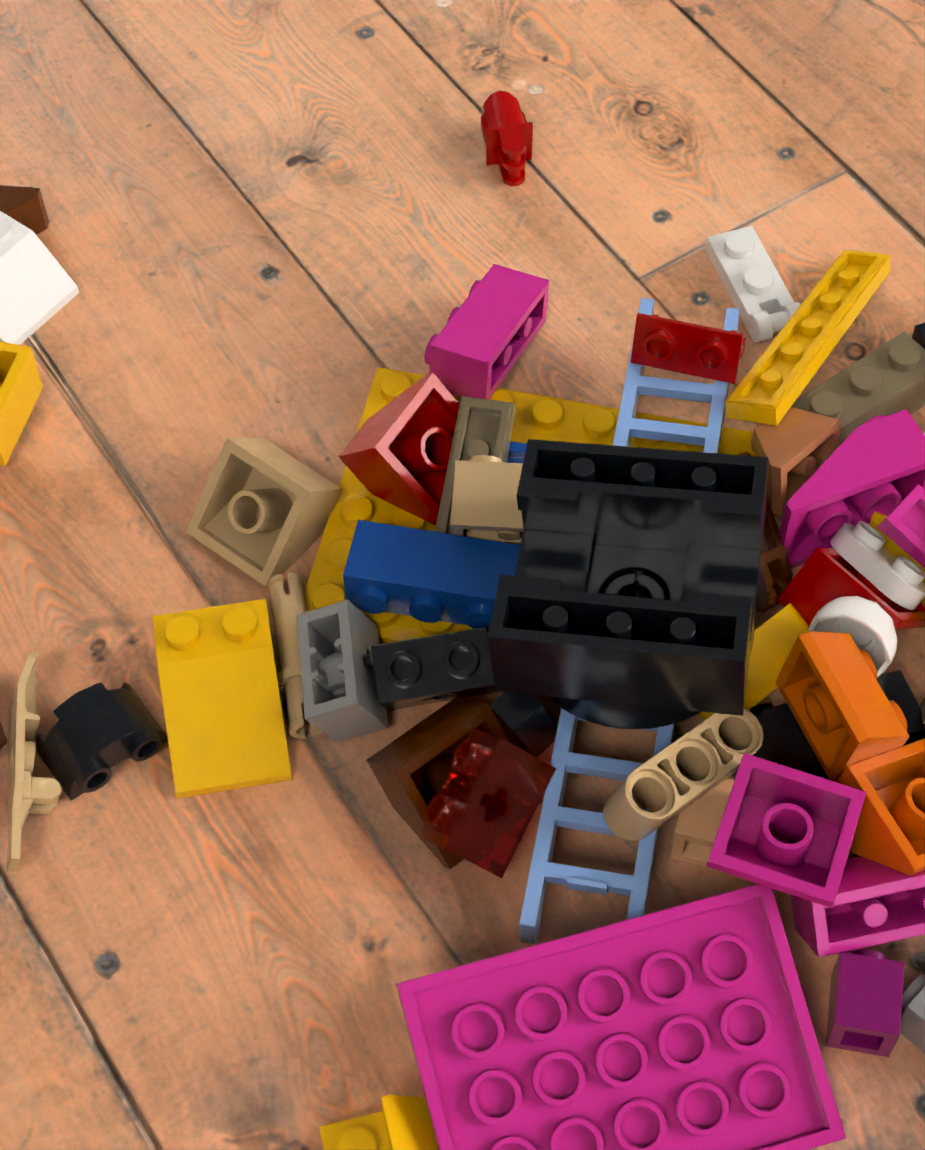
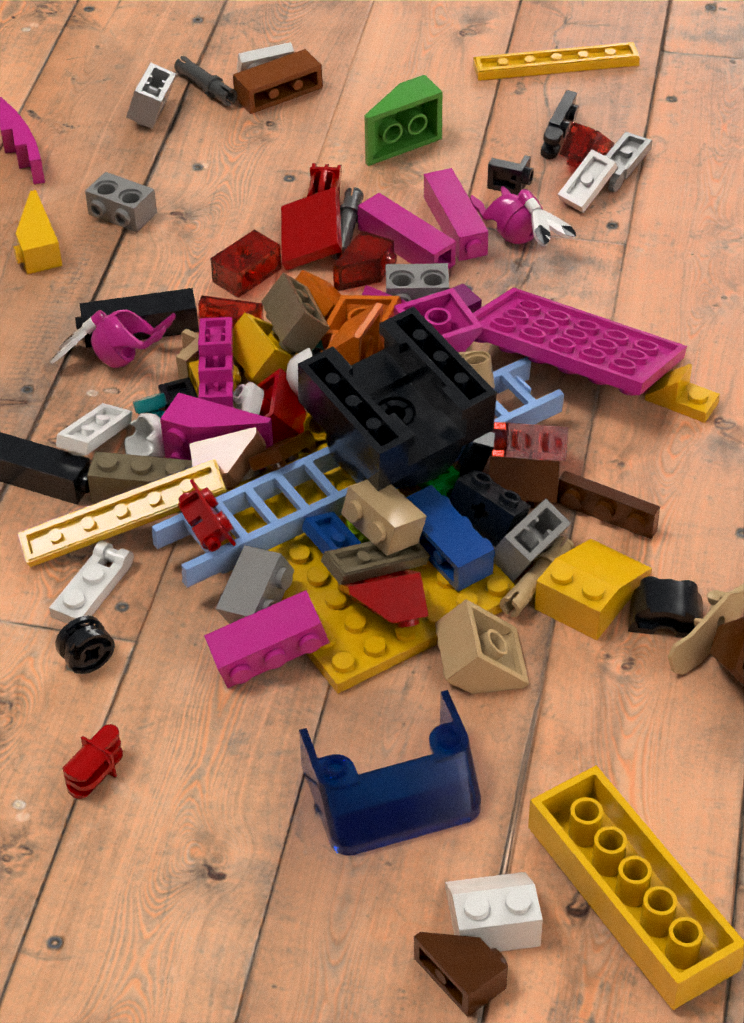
camera: 135 degrees left, 10 degrees down
(154, 344) = (399, 799): none -> clear blue windscreen
(306, 825) = (608, 504): none -> reddish brown plate
(567, 368) = (254, 583): none -> light grey brick
(651, 203) = (84, 645): none -> black wheel

